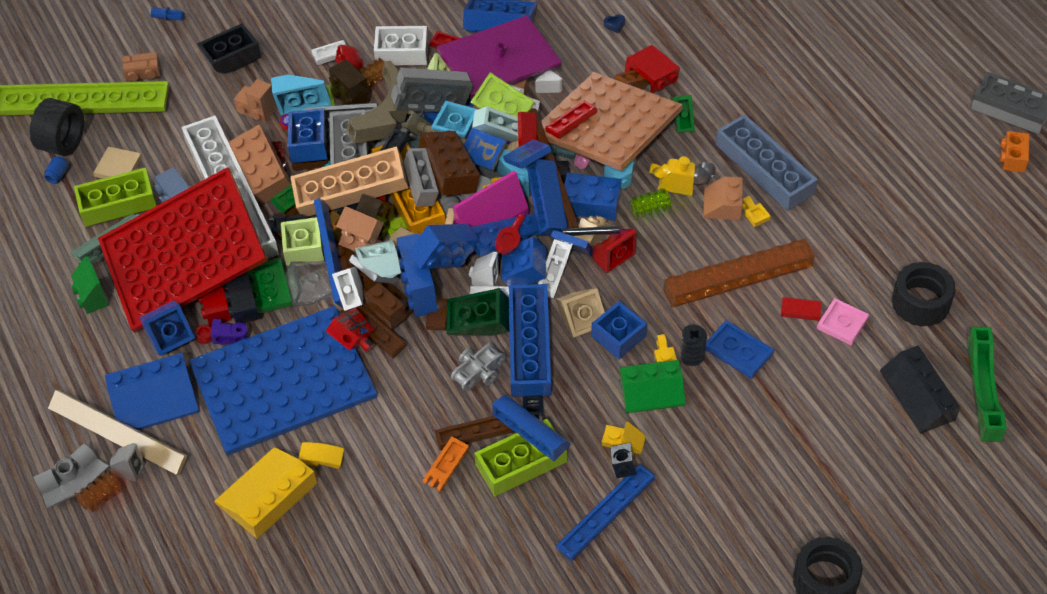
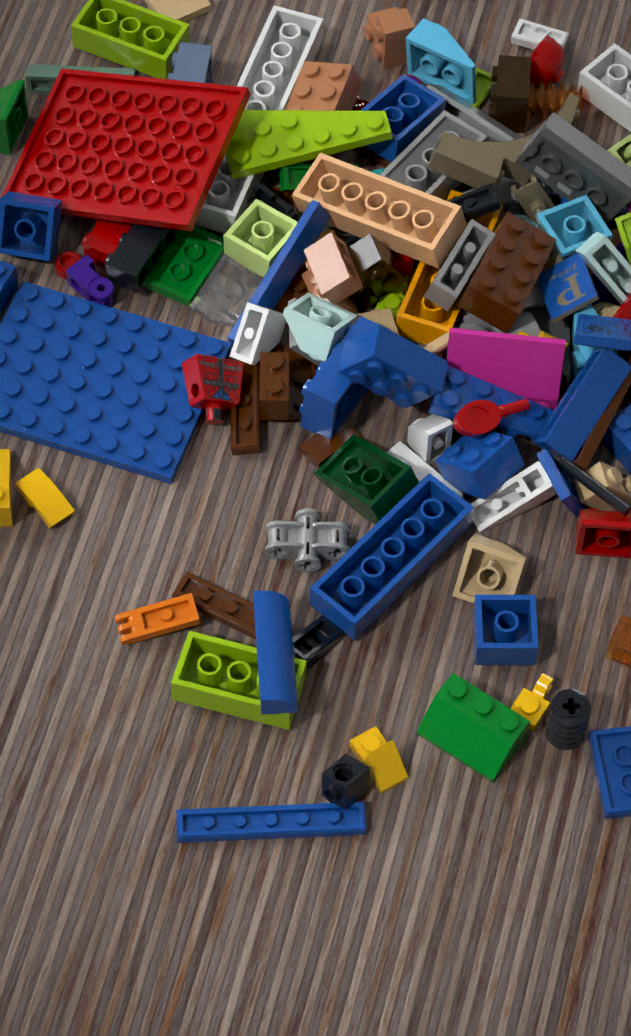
camera: 40 degrees right, 5 degrees up
(269, 177) = (287, 137): none -> lime wing

